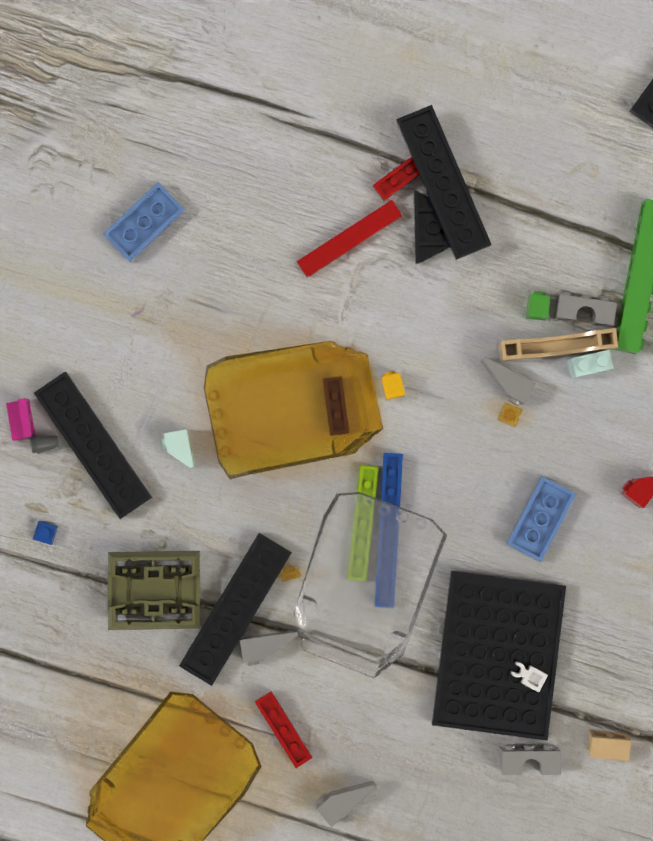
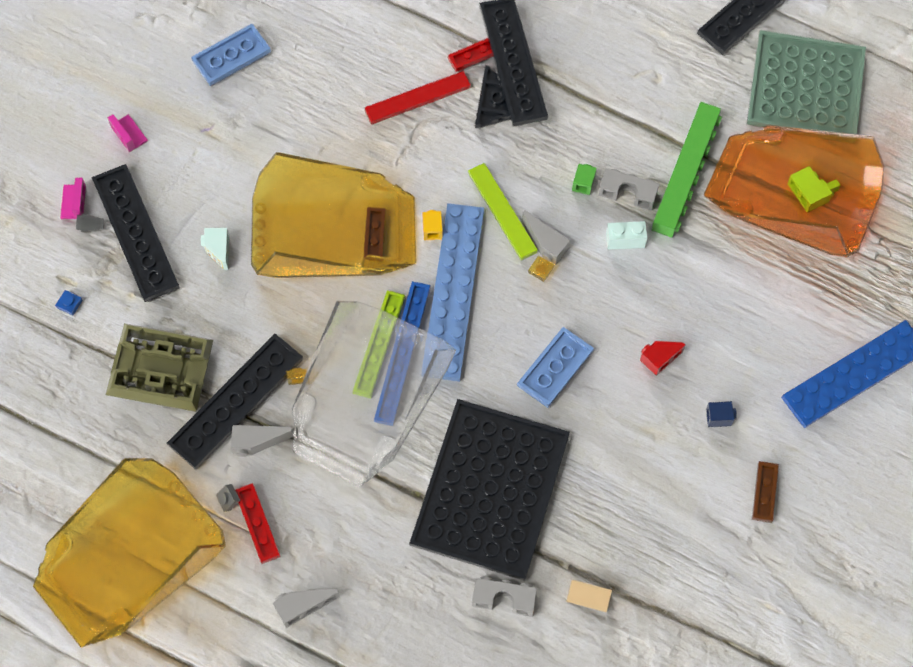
camera: 15 degrees right, 20 degrees down
(57, 331) = (127, 132): none -> dark pink panel
(250, 710) = (227, 497): none -> dark grey plate
(426, 440) = (456, 280): none -> medium blue plate
(459, 355) = (502, 211): none -> lime tile
(531, 677) = (518, 510): white plate -> none
(558, 345) = (561, 211): tan arch -> none

